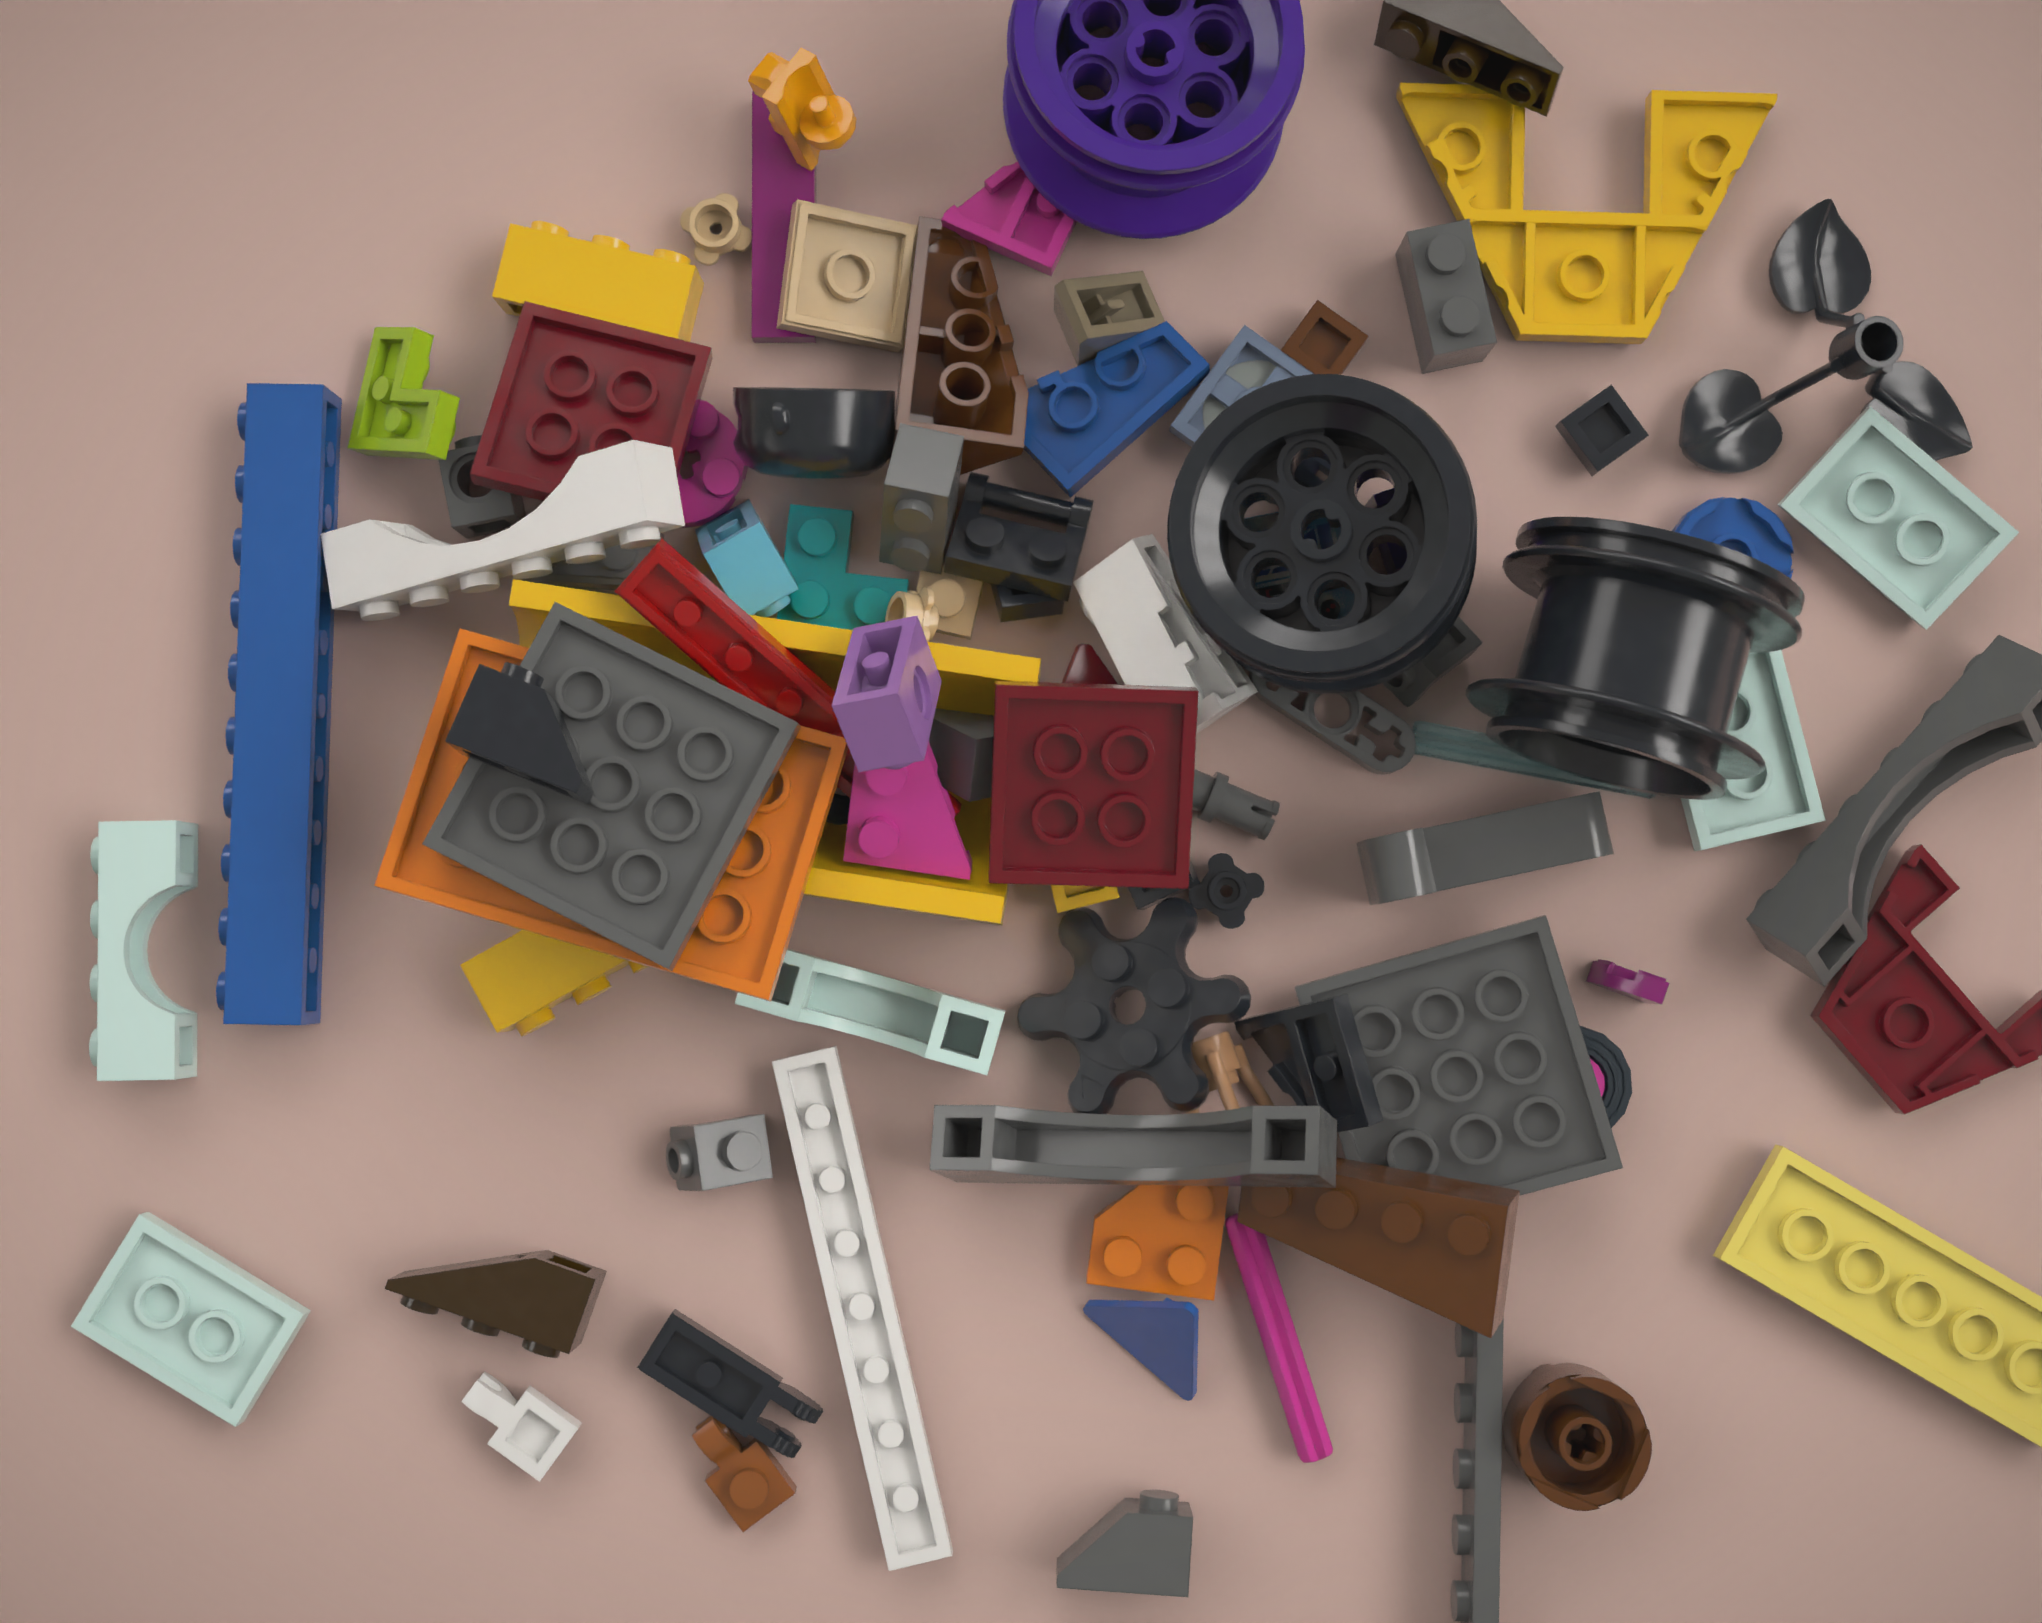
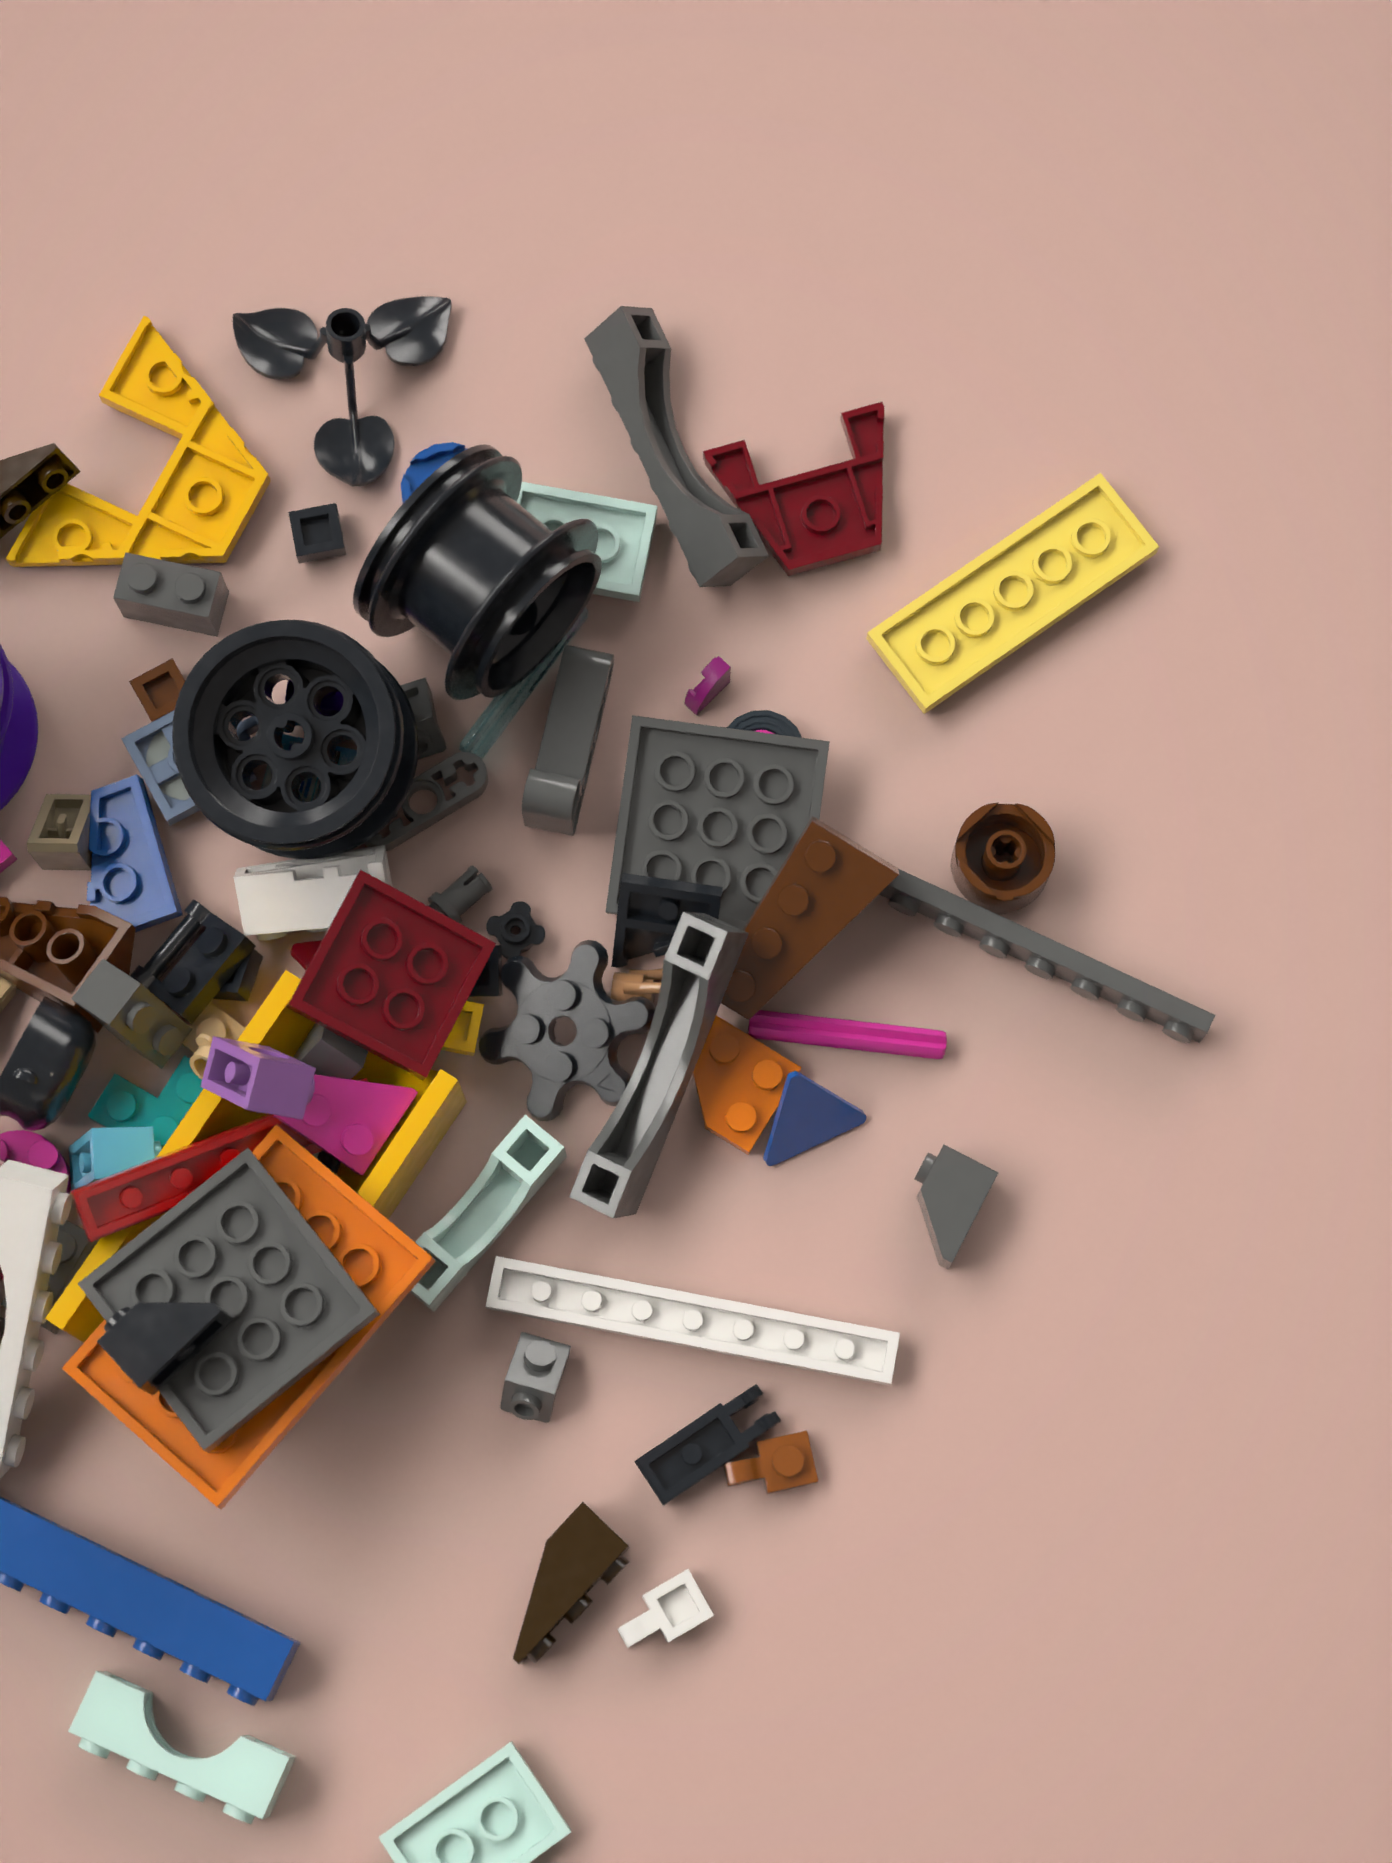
camera: 70 degrees left, 10 degrees down
(534, 973) = (338, 1437): yellow brick -> none
(1897, 518) = (473, 368): light aqua plate -> none

